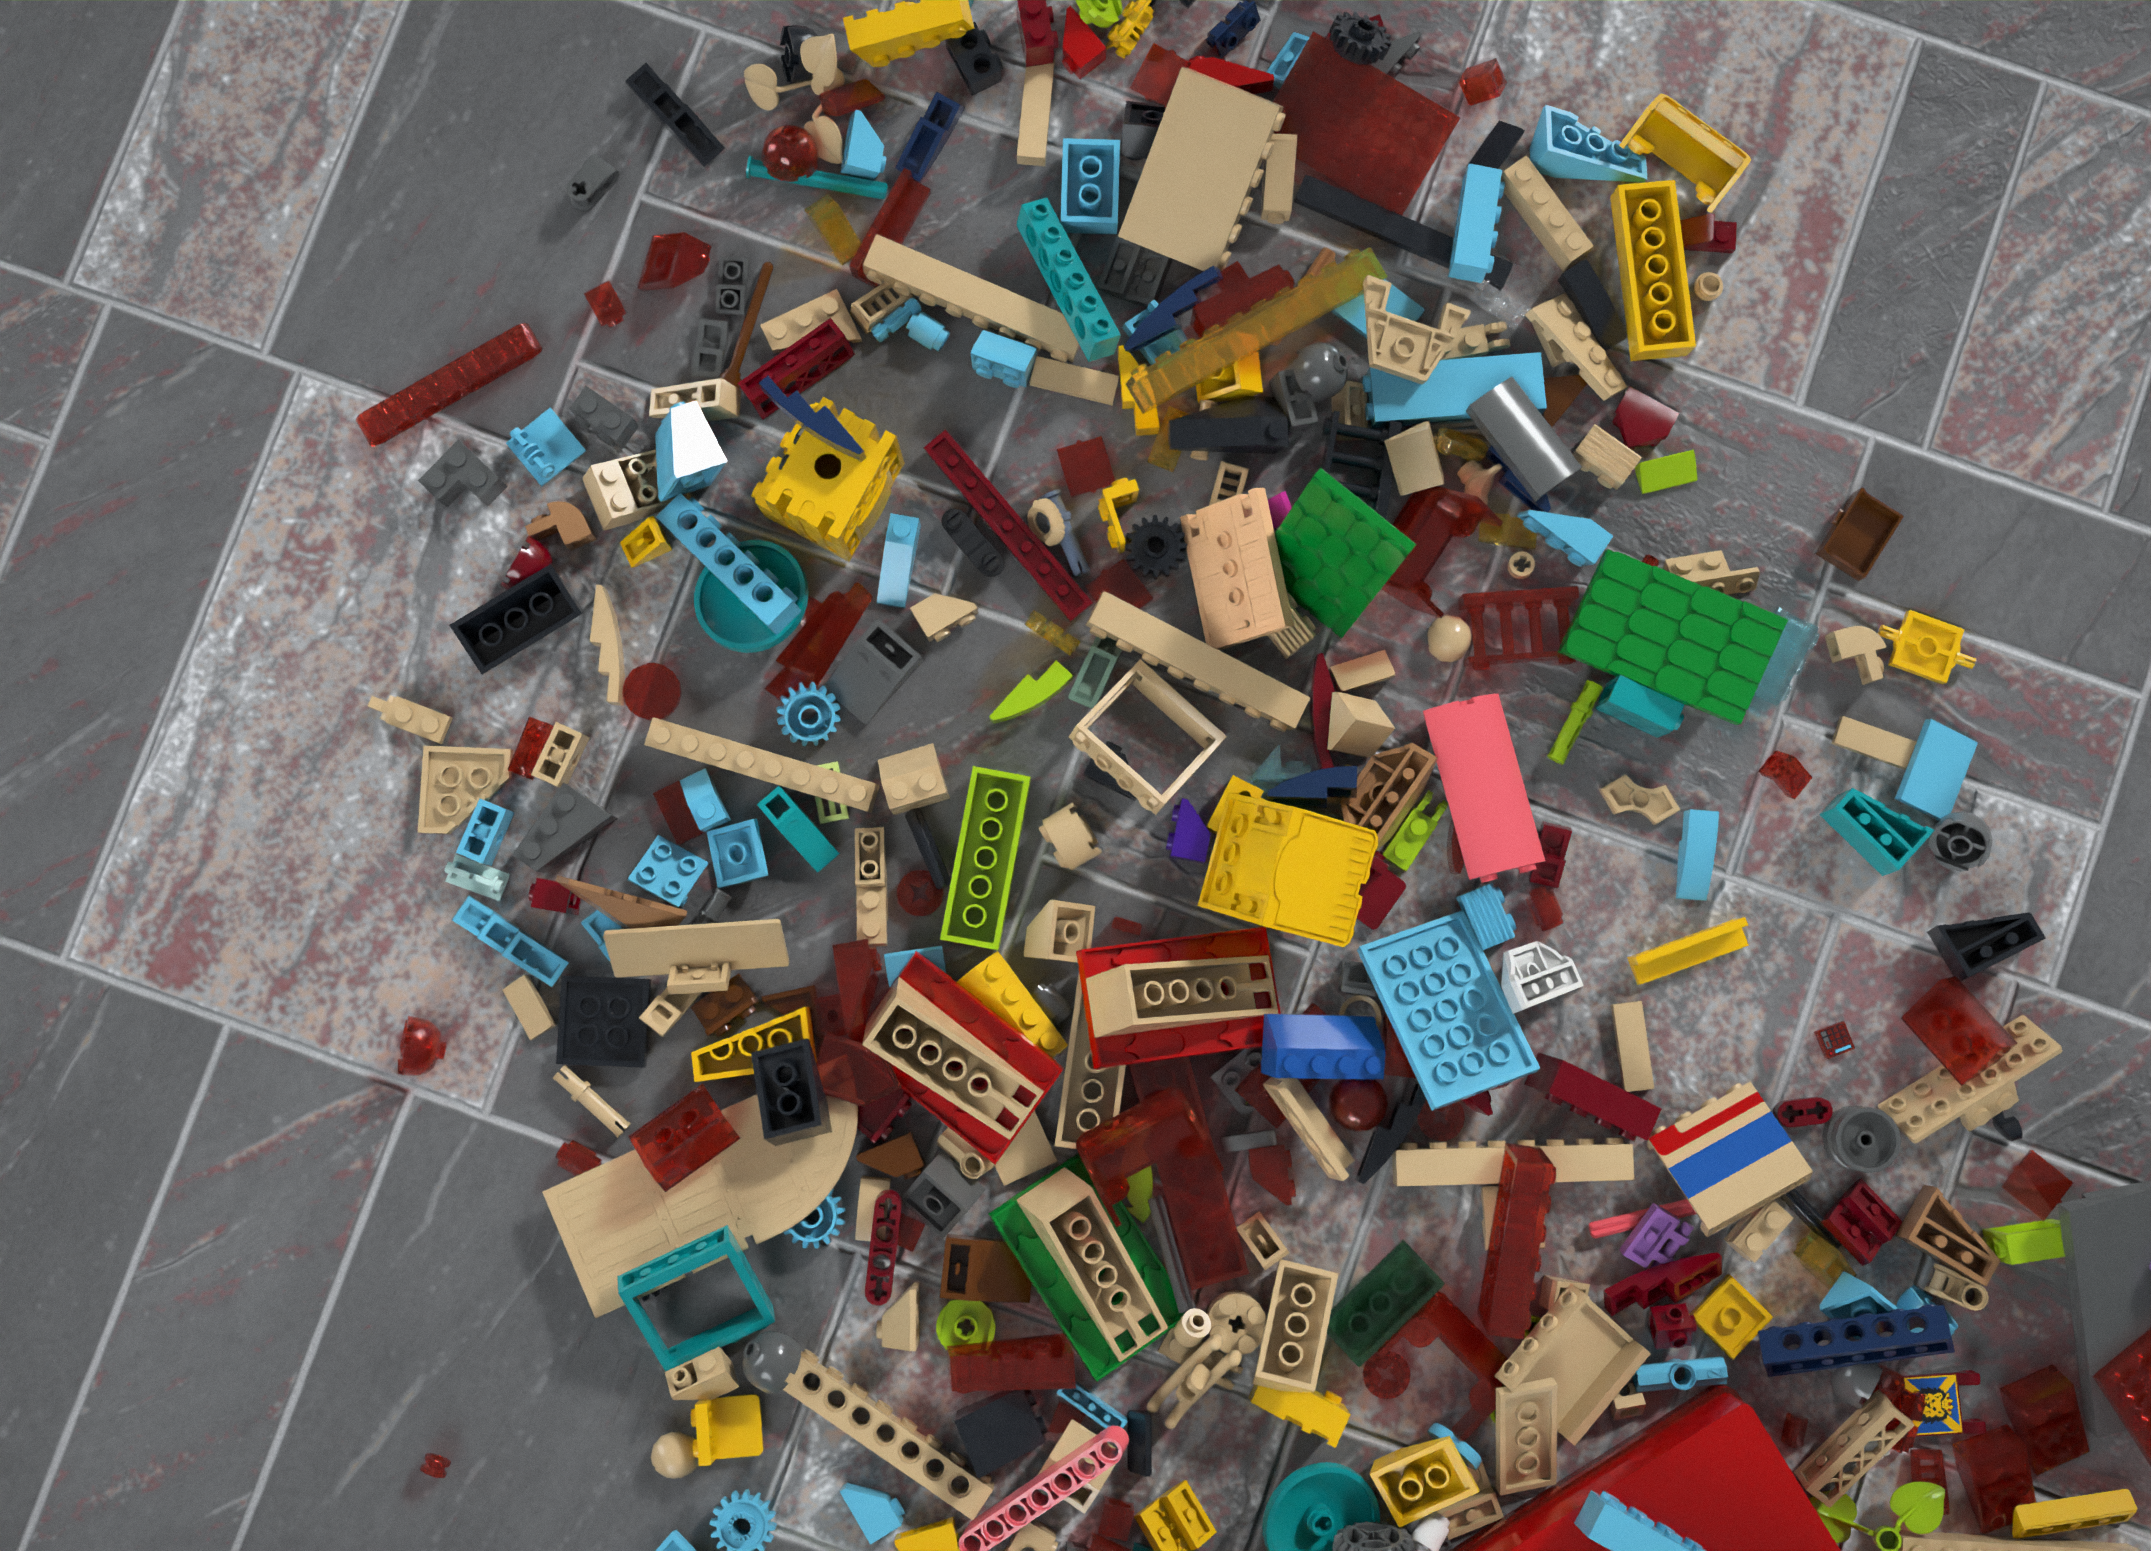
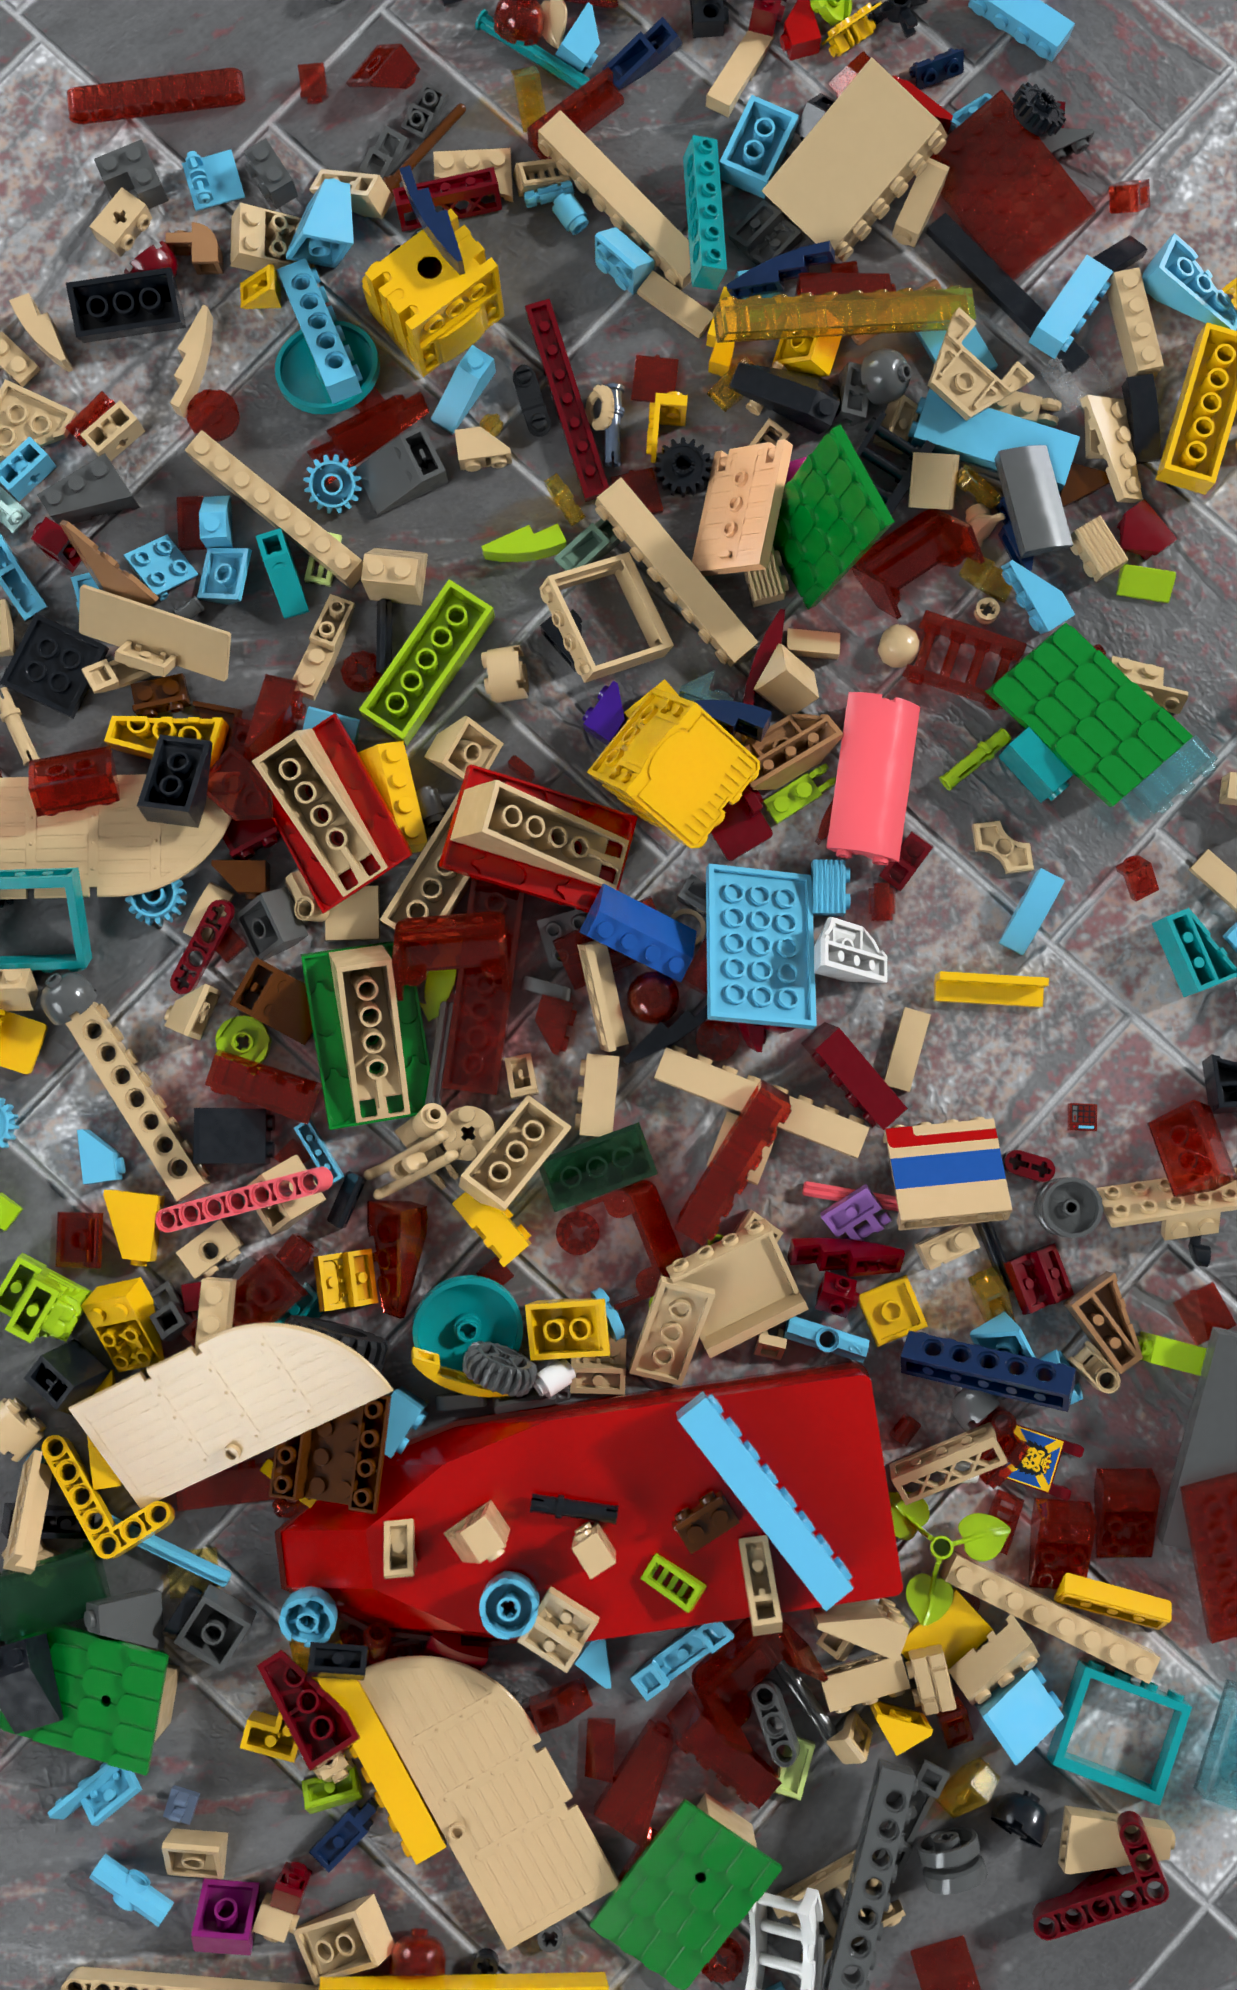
camera: 25 degrees right, 0 degrees up
(437, 678) = (41, 330): none -> tan slope
(468, 517) = (121, 222): none -> tan brick
(941, 583) = (492, 424): none -> clear yellow plate
(1212, 1461) = (399, 1239): none -> clear red wedge
(1319, 1451) = (496, 1272): none -> clear red tile
(1347, 1227) = (597, 1095): none -> tan brick

